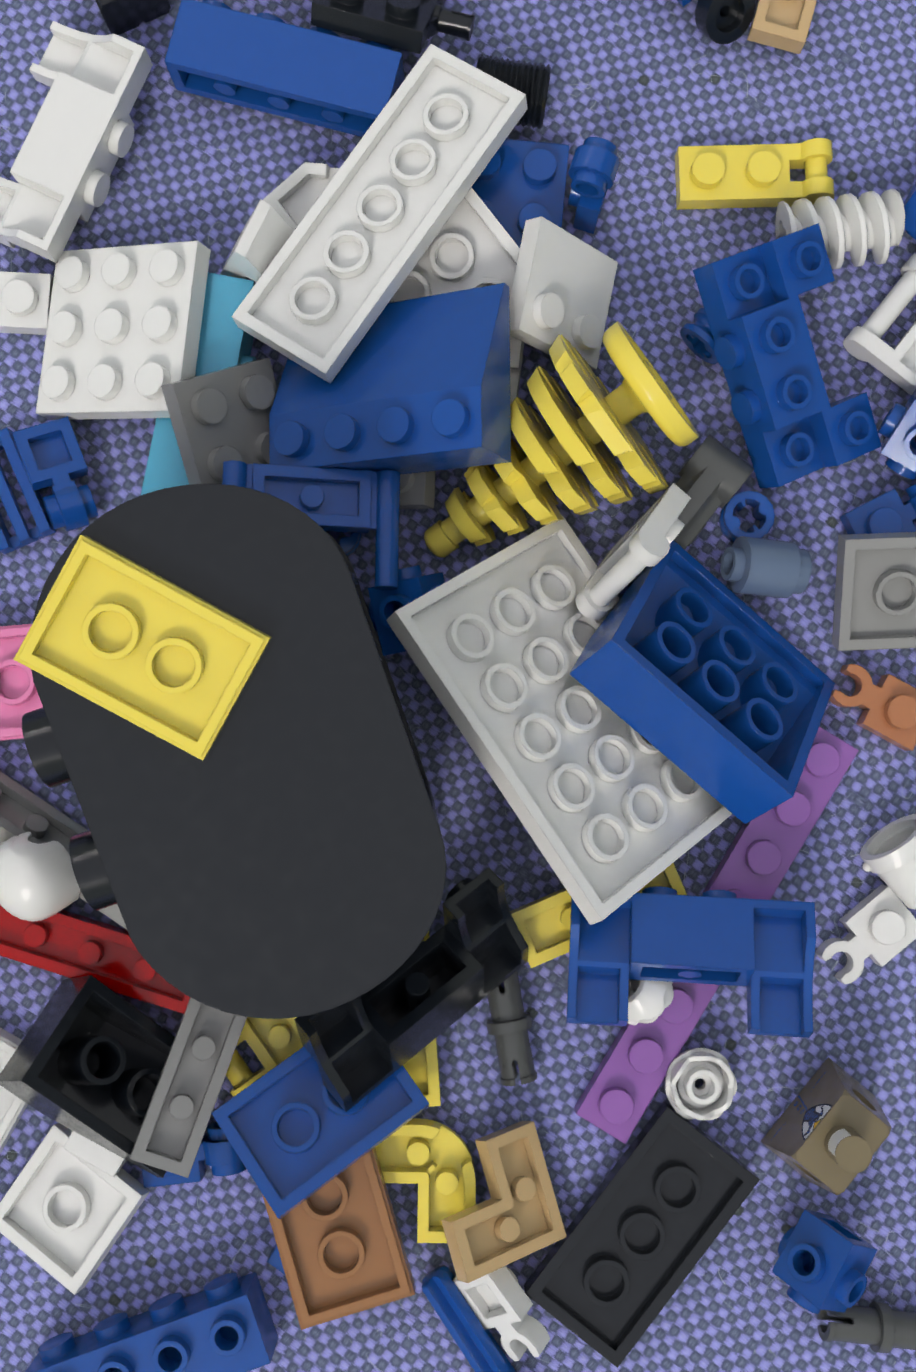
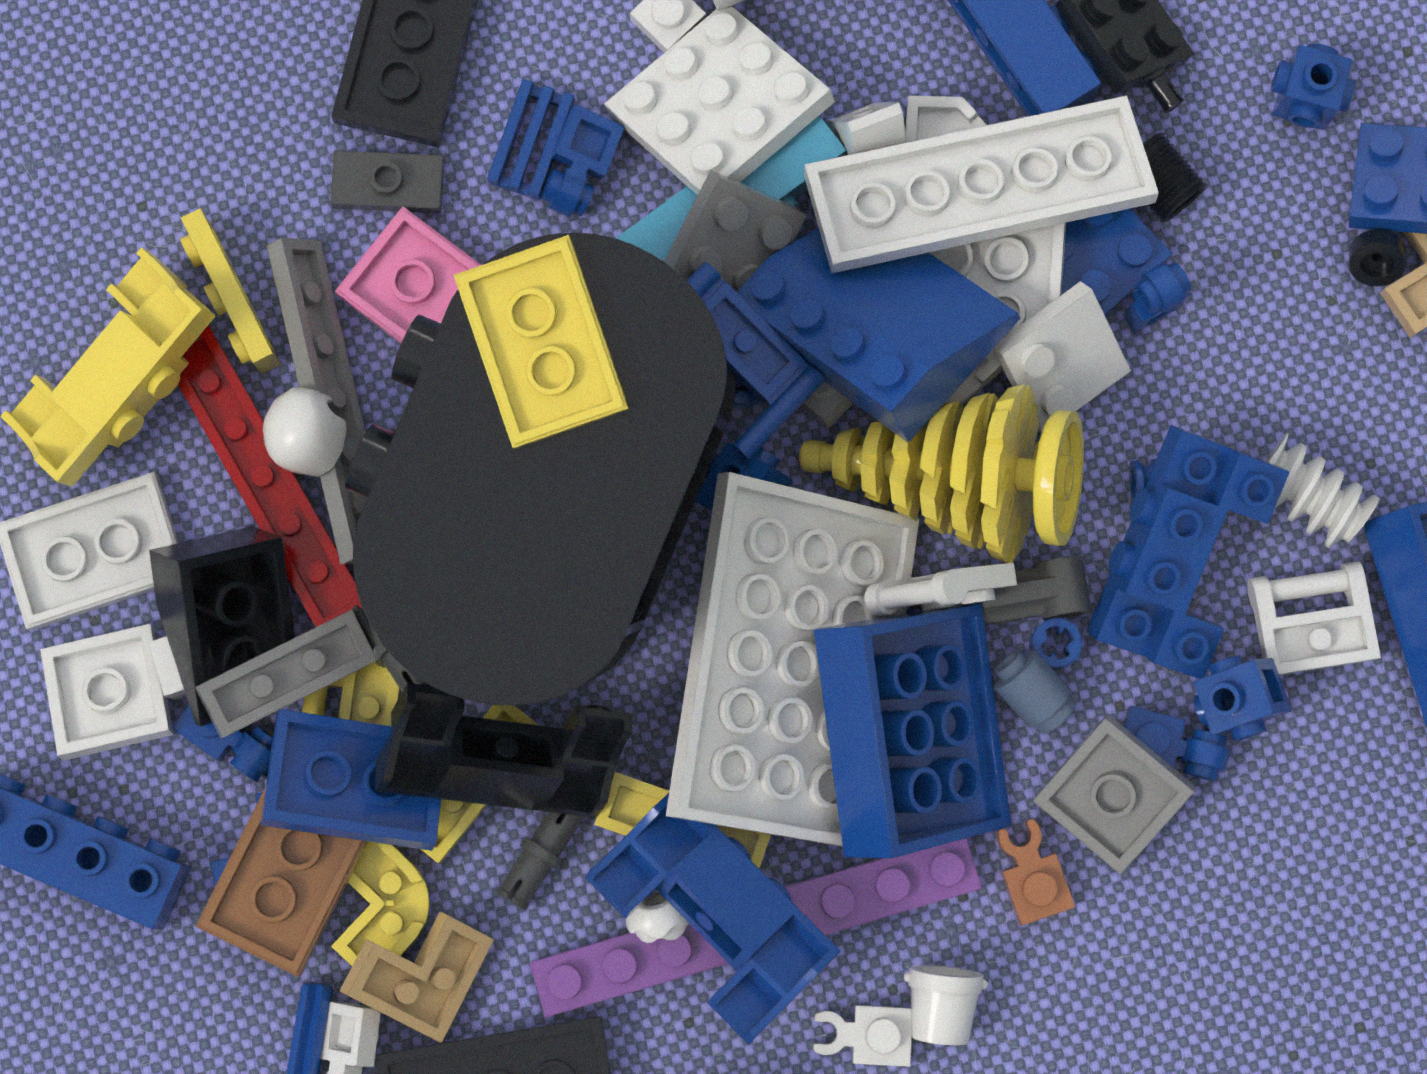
camera: 40 degrees right, 5 degrees down
(712, 1097) = (645, 1042): white plate -> none
(751, 174) = (1292, 396): light yellow plate -> none

